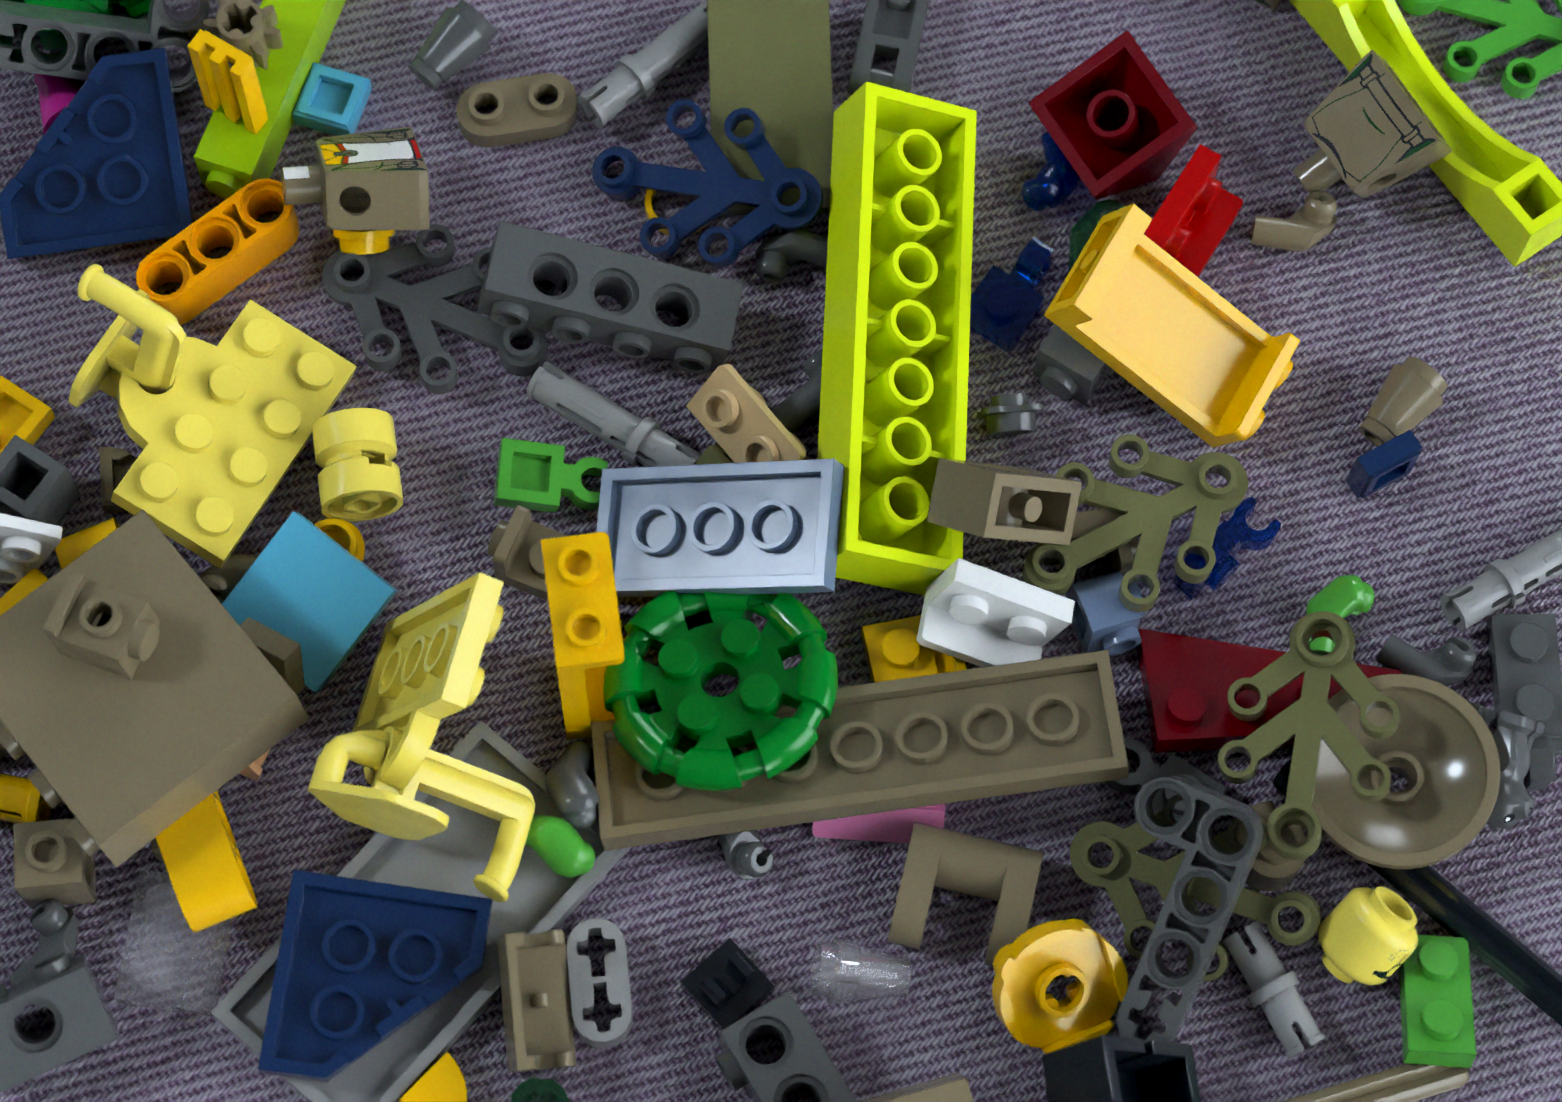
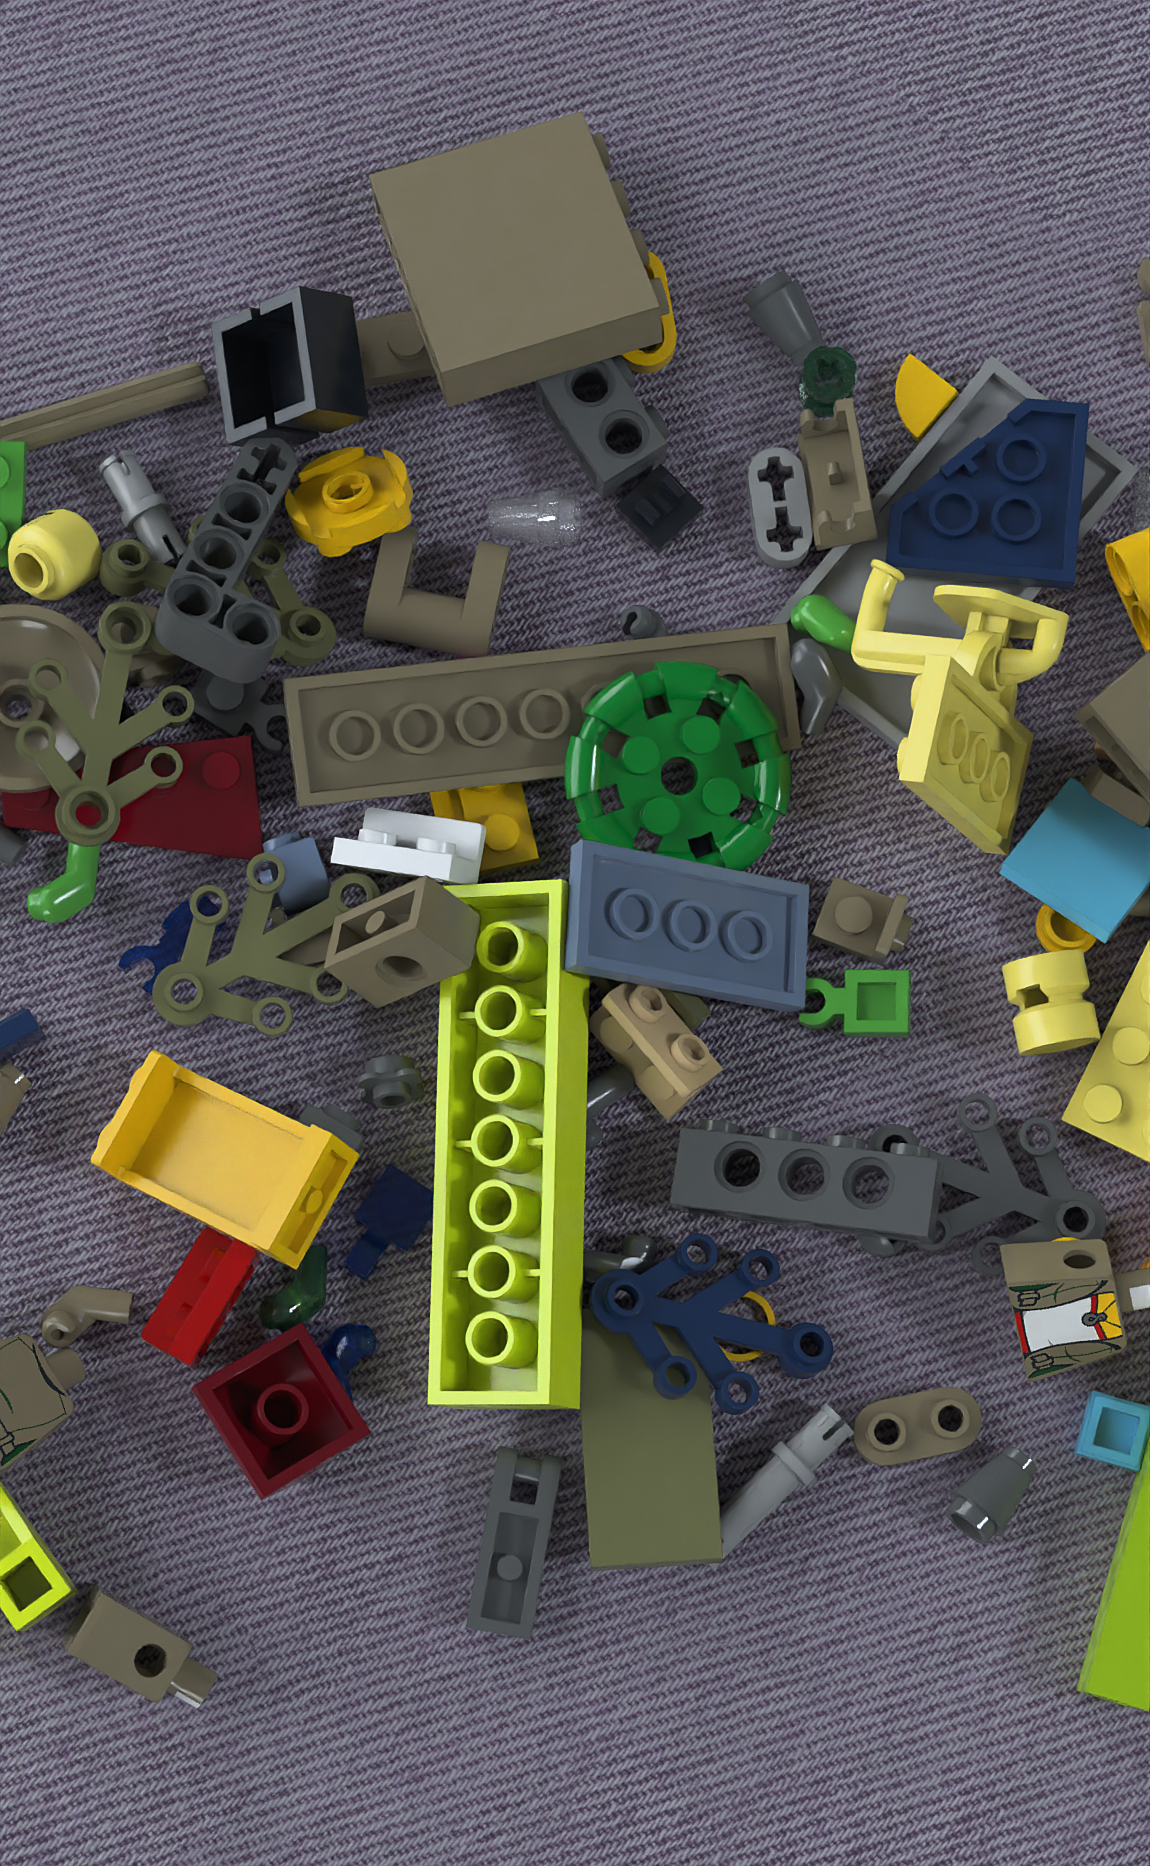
camera: 175 degrees right, 10 degrees up
(582, 624) = (825, 797): yellow panel -> none
(635, 437) = (793, 1062): light grey pin -> none

